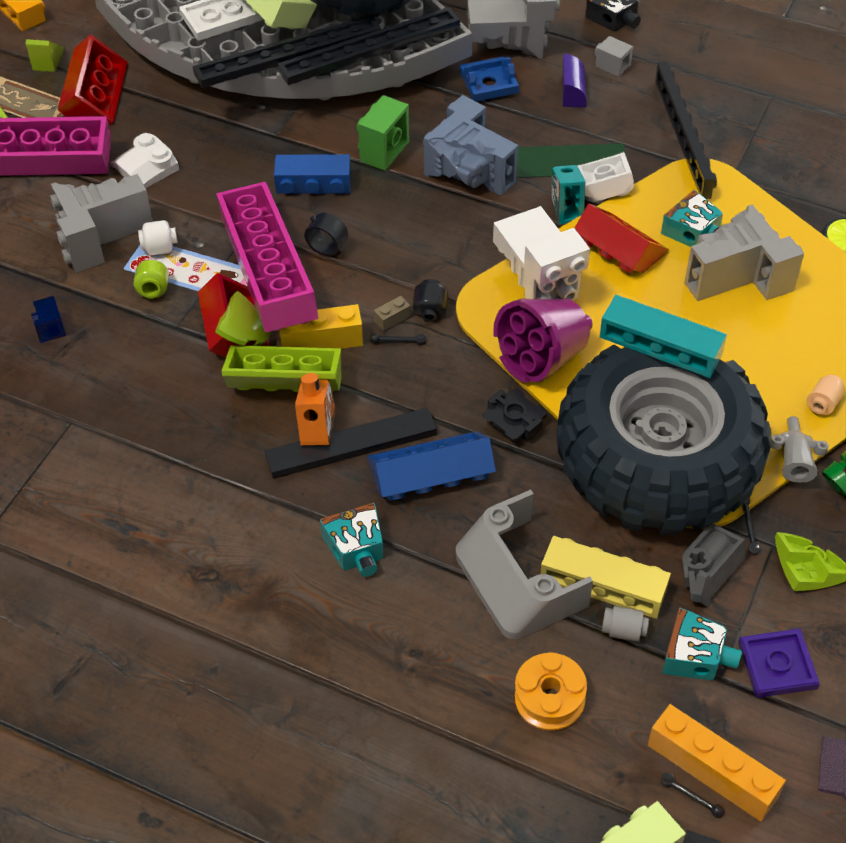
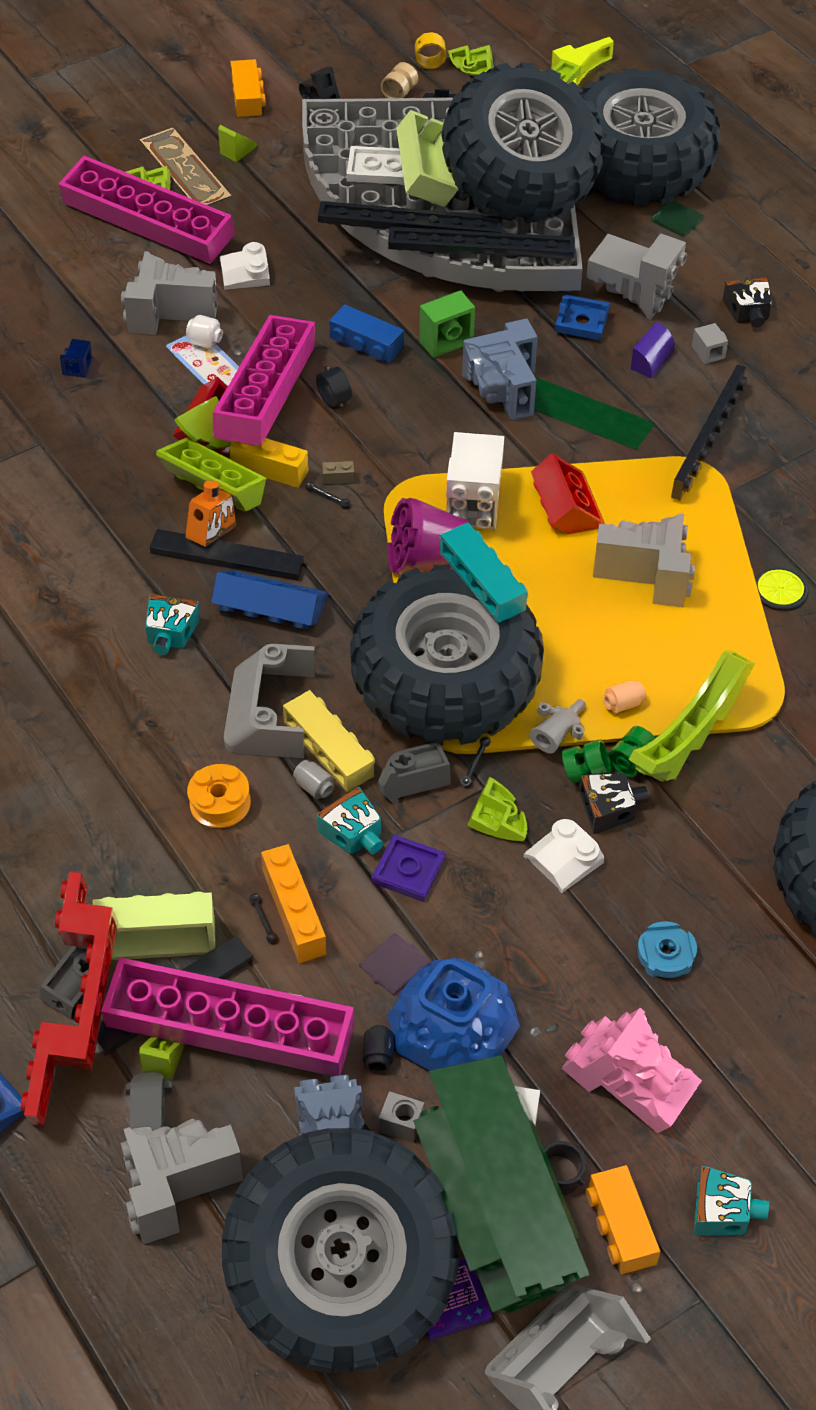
camera: 30 degrees right, 0 degrees up
(93, 81) = (253, 184): red slope -> none
(151, 279) = (175, 361): lime head -> none
(430, 299) = (374, 475): black head -> none
(514, 414) = (359, 588): black piece -> none
(567, 184) = (561, 433): teal torso -> none
(607, 178) = (602, 443): white slope -> none
(691, 218) = (640, 504): torso -> none

